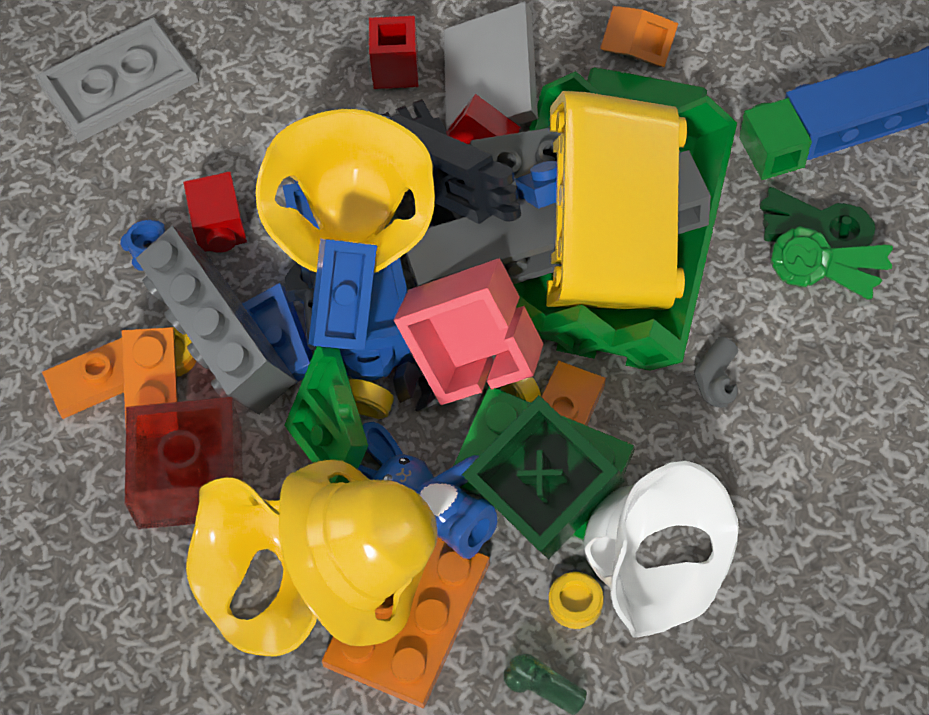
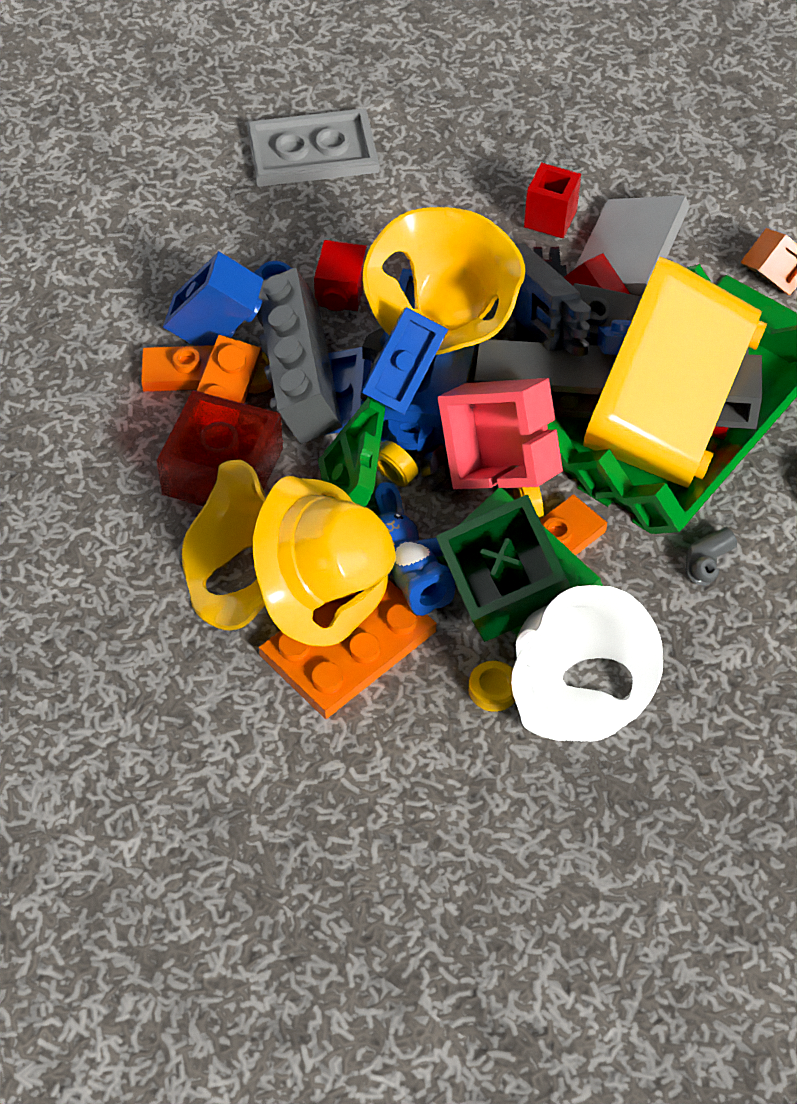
camera: 20 degrees right, 5 degrees down
(100, 296) = (214, 302): none -> blue brick
(531, 674) = (425, 724): clear green arm -> none

